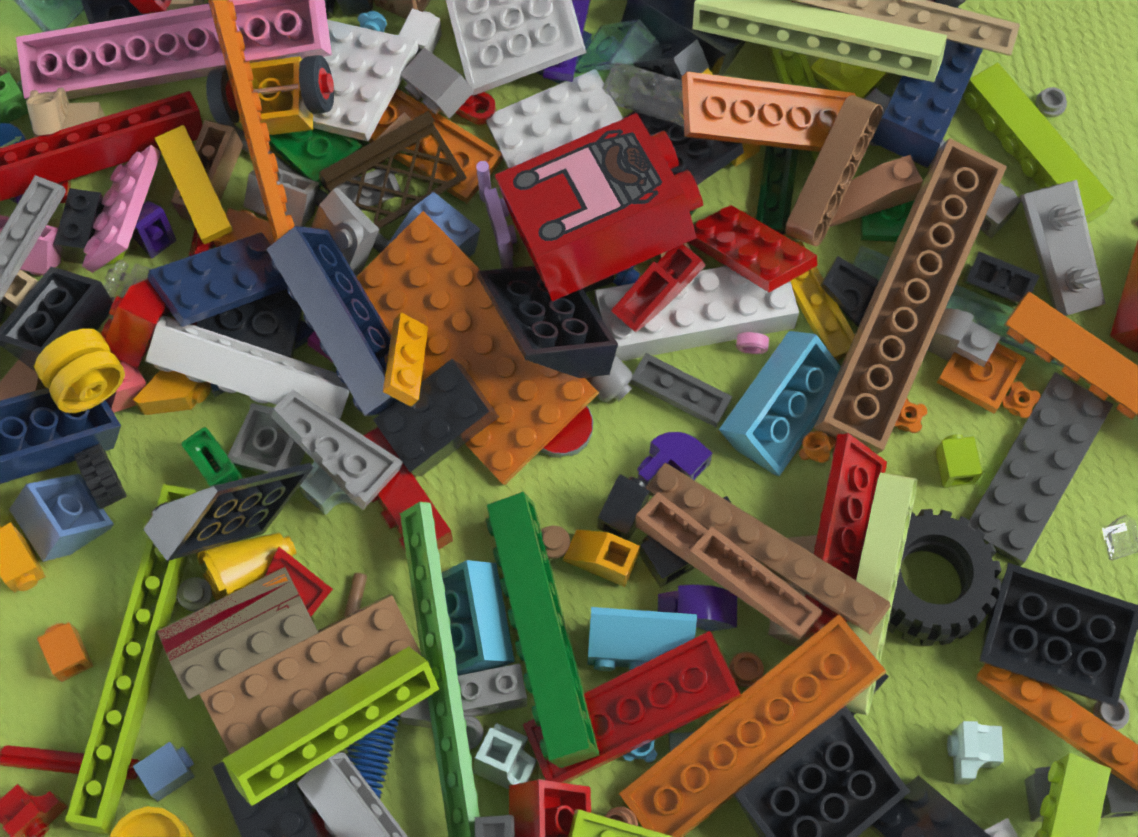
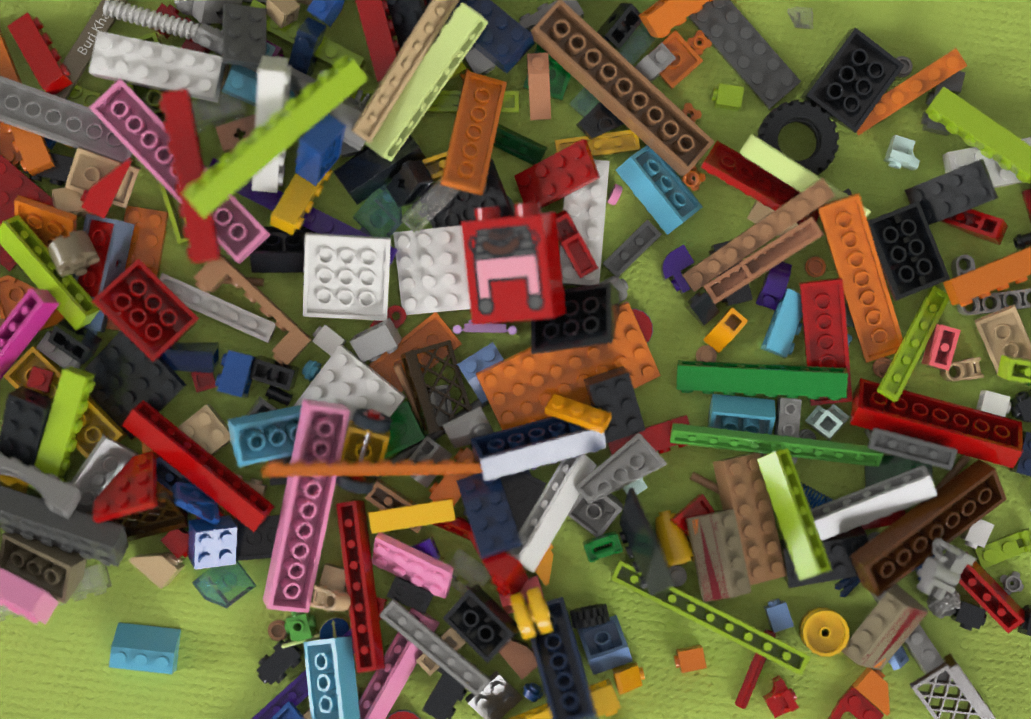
camera: 75 degrees left, 20 degrees up
(833, 170) = (521, 105): medium nougat beam -> none

